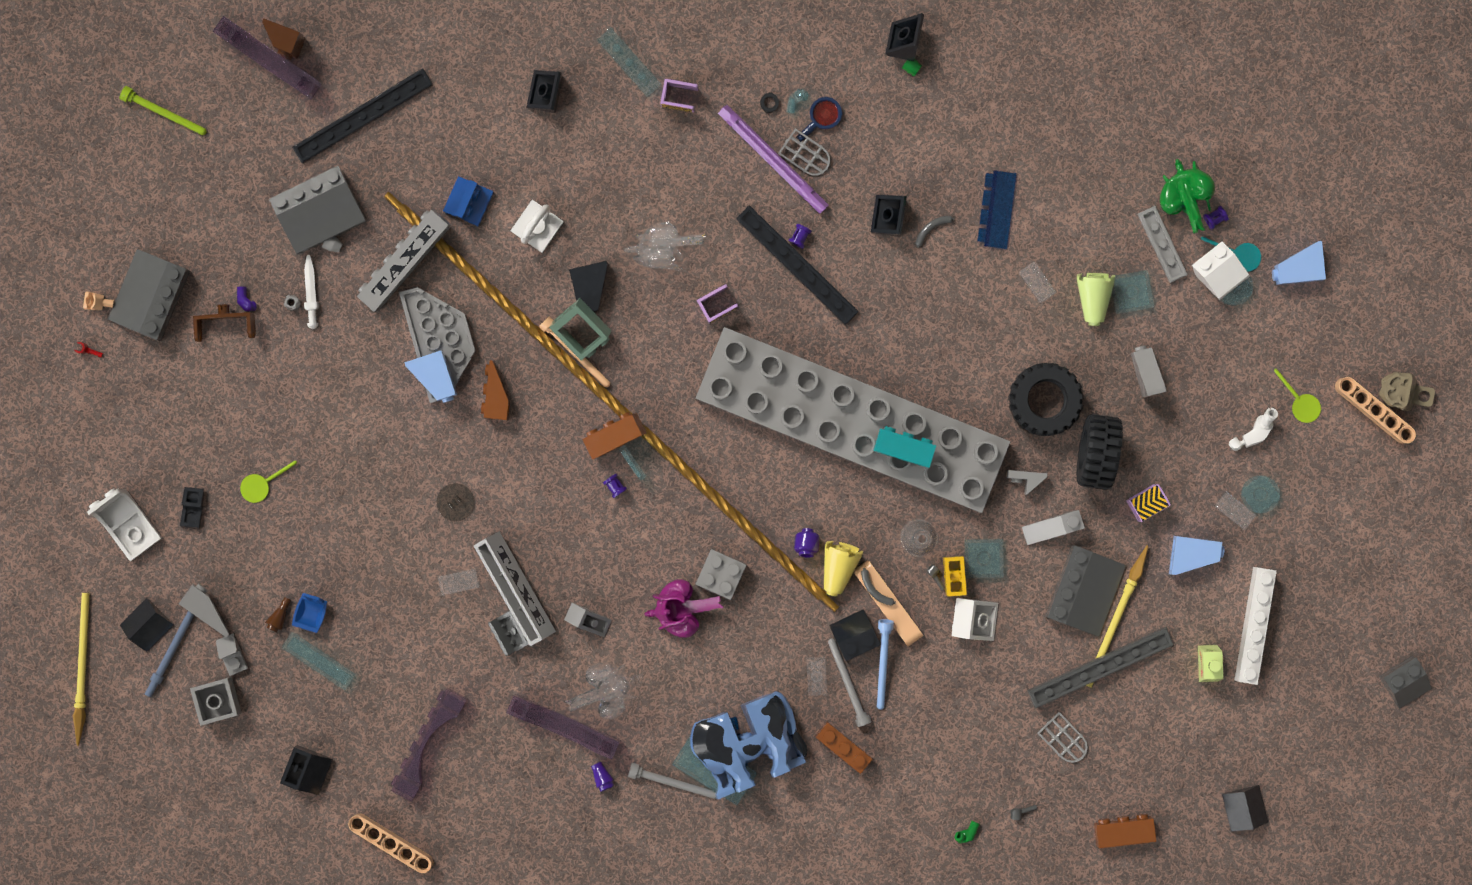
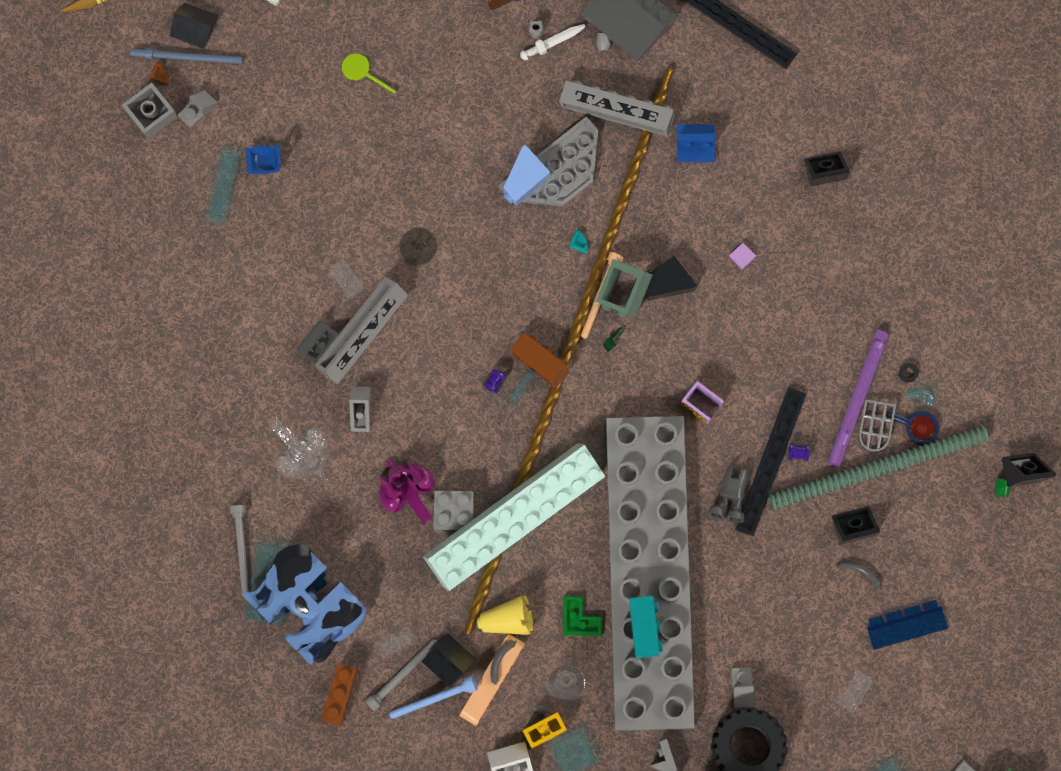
camera: 70 degrees right, 10 degrees down
(181, 676) = (159, 74): none -> dark orange tile
(192, 507) = (314, 21): black slope -> none
(202, 606) = (230, 64): light grey slope -> none
(276, 620) = (246, 134): reddish brown cone -> none
(306, 770) = (118, 215): black slope -> none
(380, 842) = (79, 310): light nougat beam -> none
(410, 778) = (148, 311): clear purple arch -> none
(497, 400) = (526, 243): dark orange slope -> none
(516, 350) = (579, 242): none -> teal tile
(537, 226) = (700, 212): white tile -> none
(563, 725) = (253, 436): clear purple arch -> none
(595, 205) = (742, 256): none -> lavender tile
(602, 777) = (219, 484): dark purple cone -> none
(624, 364) = (609, 342): none -> dark green hand
(629, 62) = (886, 231): clear light blue tile -> none
(660, 244) = (734, 326): clear hair -> none
(667, 82) = (887, 283): lavender piece -> none
(750, 521) = (513, 516): none -> light aqua brick
(807, 543) = (516, 579): dark purple head -> none
(810, 311) = (732, 490): none -> dark grey piece
(845, 169) = (874, 469): none -> sand green piece
(867, 506) = (575, 623): none -> green tile
(990, 381) = (742, 687): none -> light grey slope
(1095, 296) = (867, 751): yellowish green cone -> none

